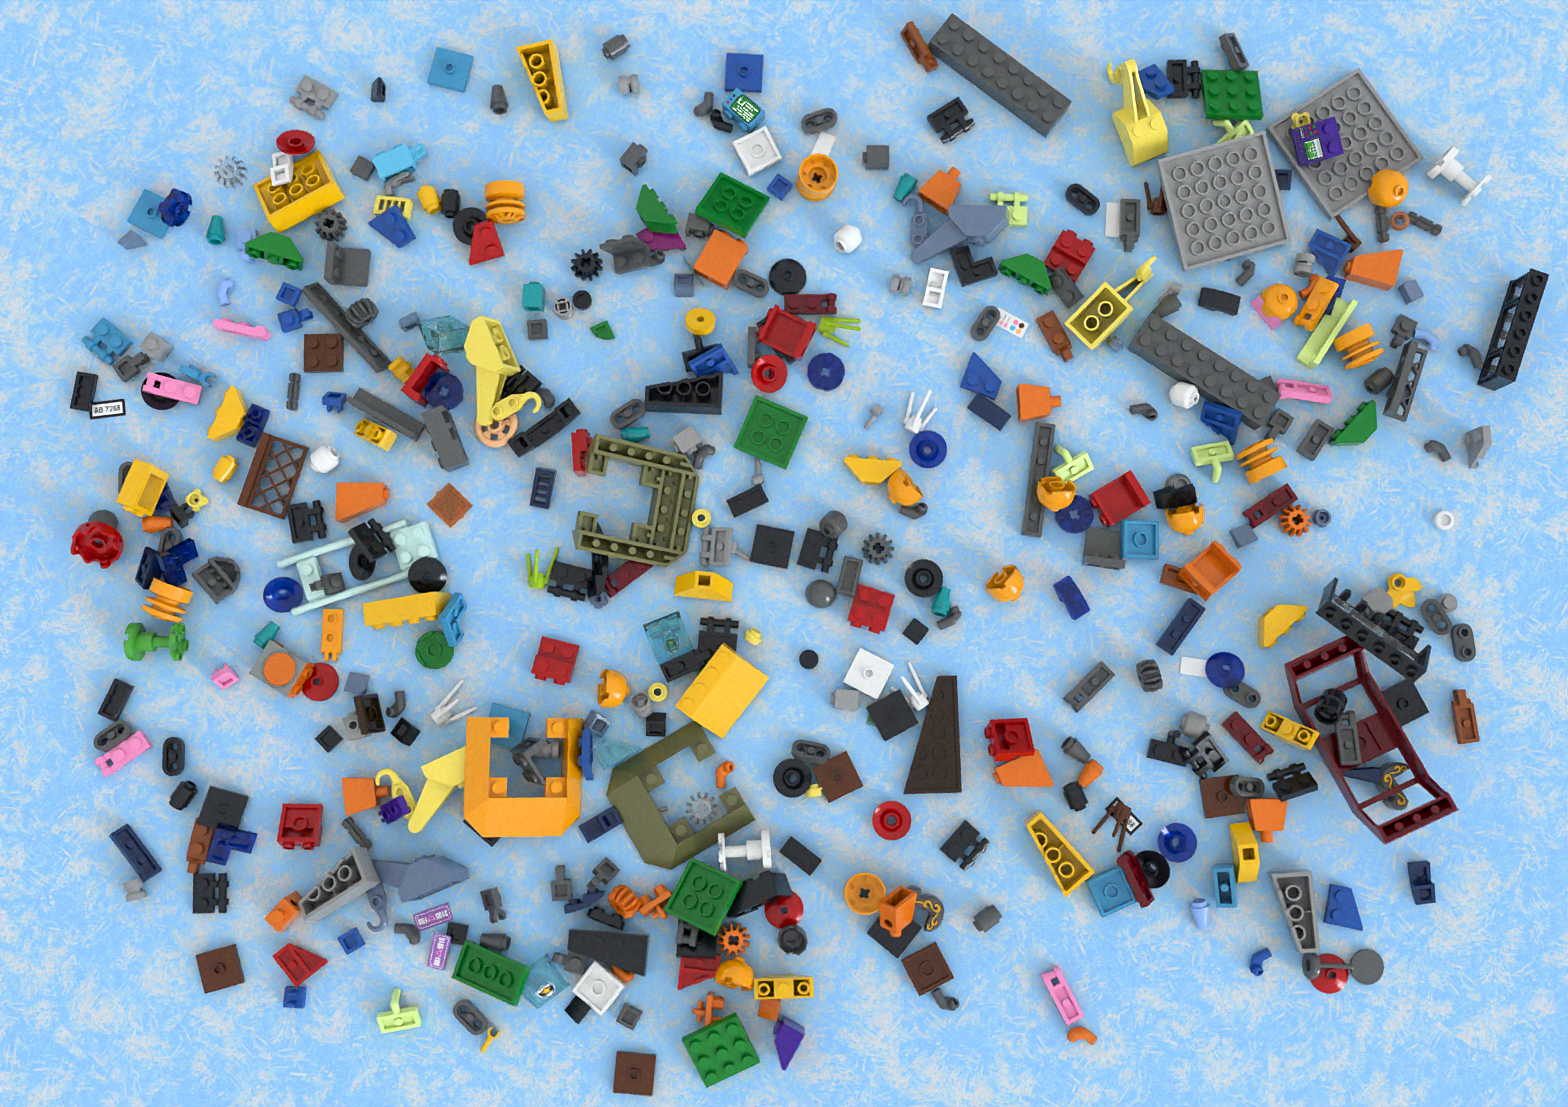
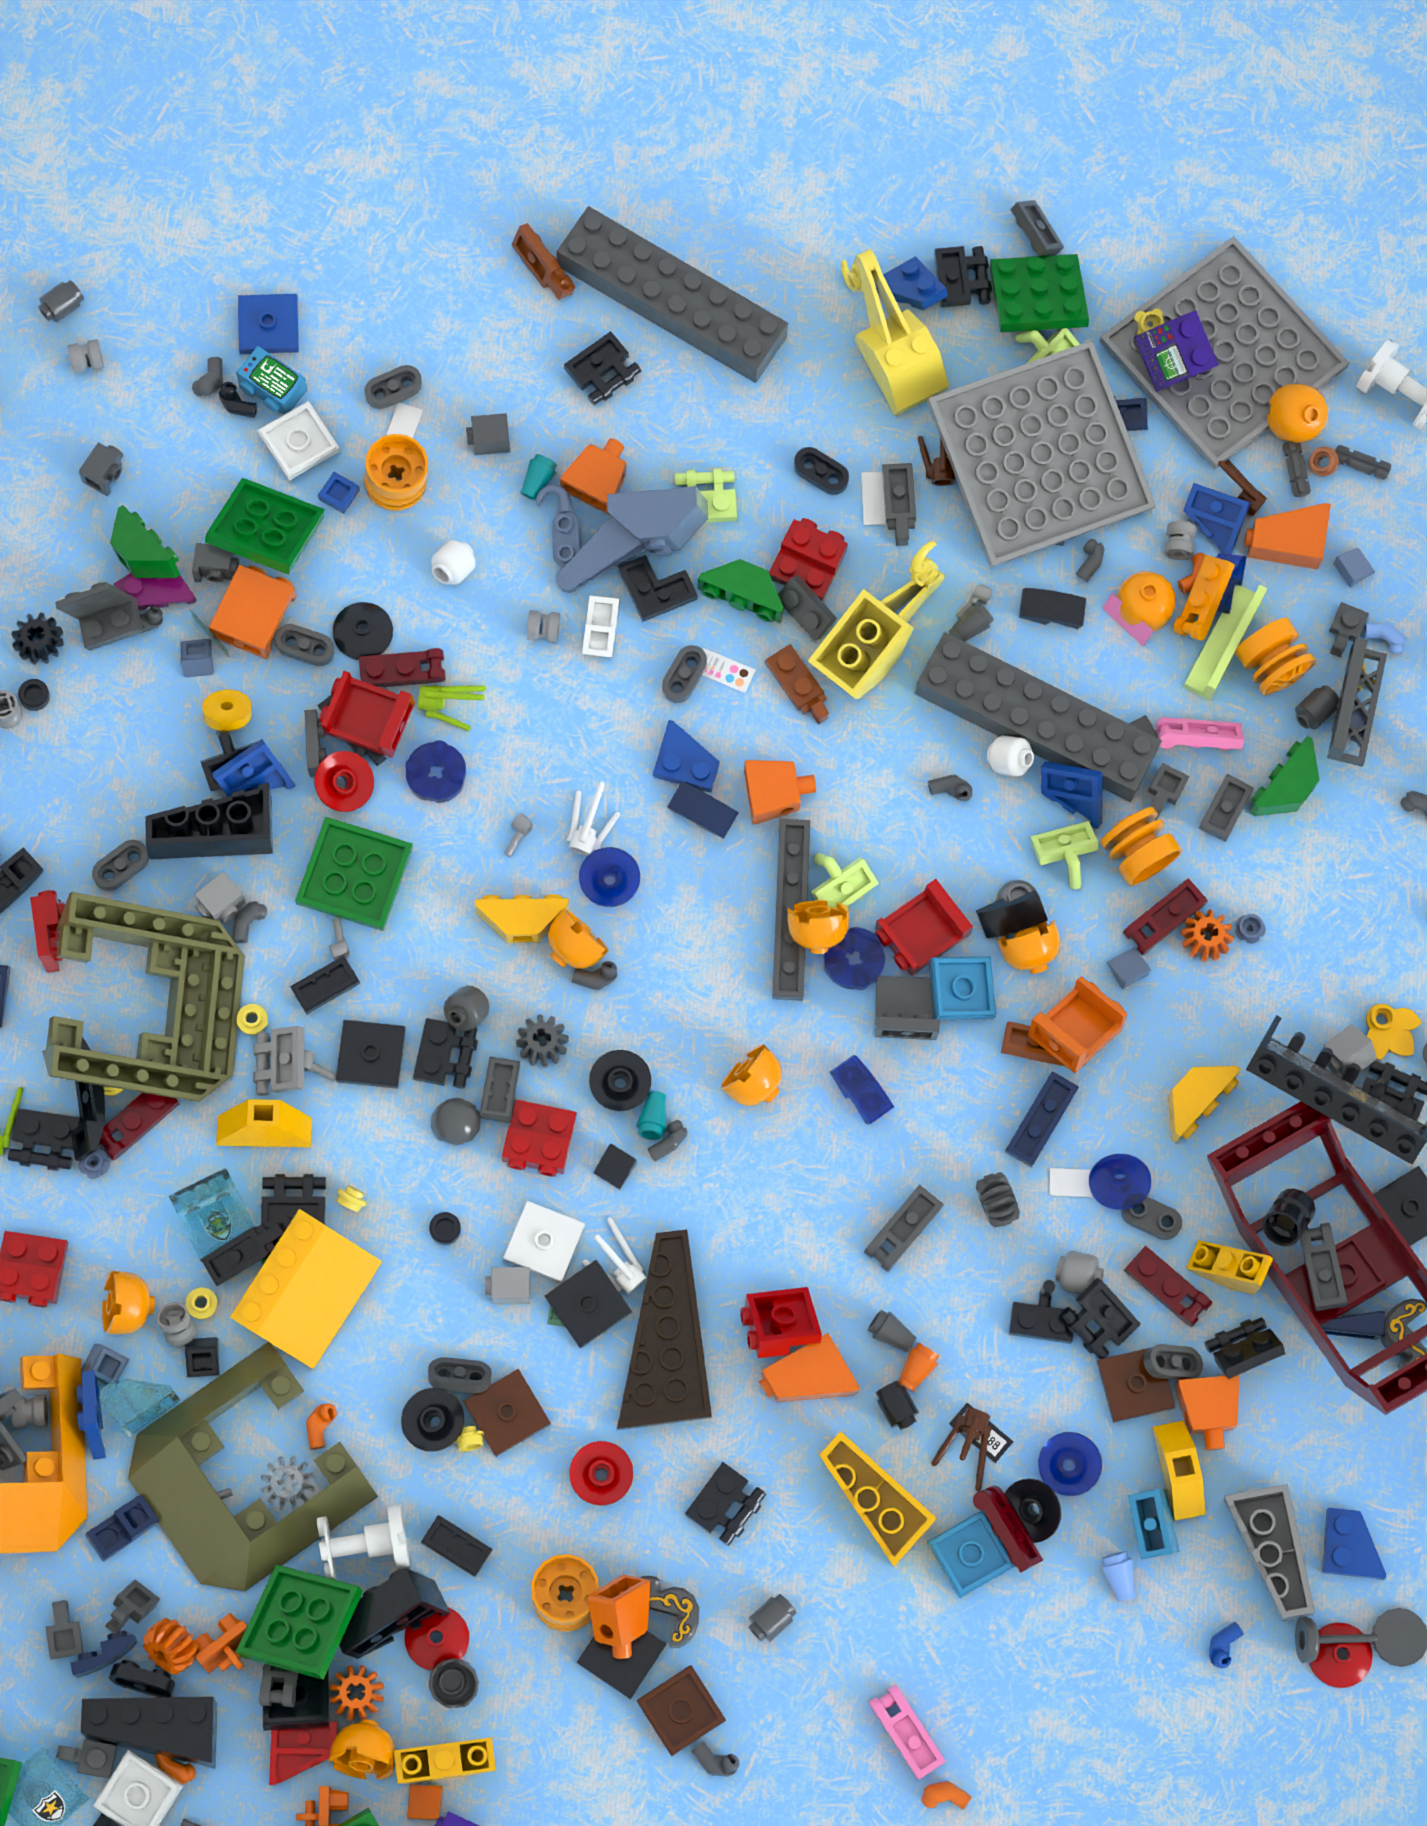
camera: 10 degrees left, 10 degrees down
(603, 331) = (71, 740): green tile -> none
(635, 434) = (136, 894): teal cone -> none
(1115, 343) = (893, 687): sand blue plate -> none

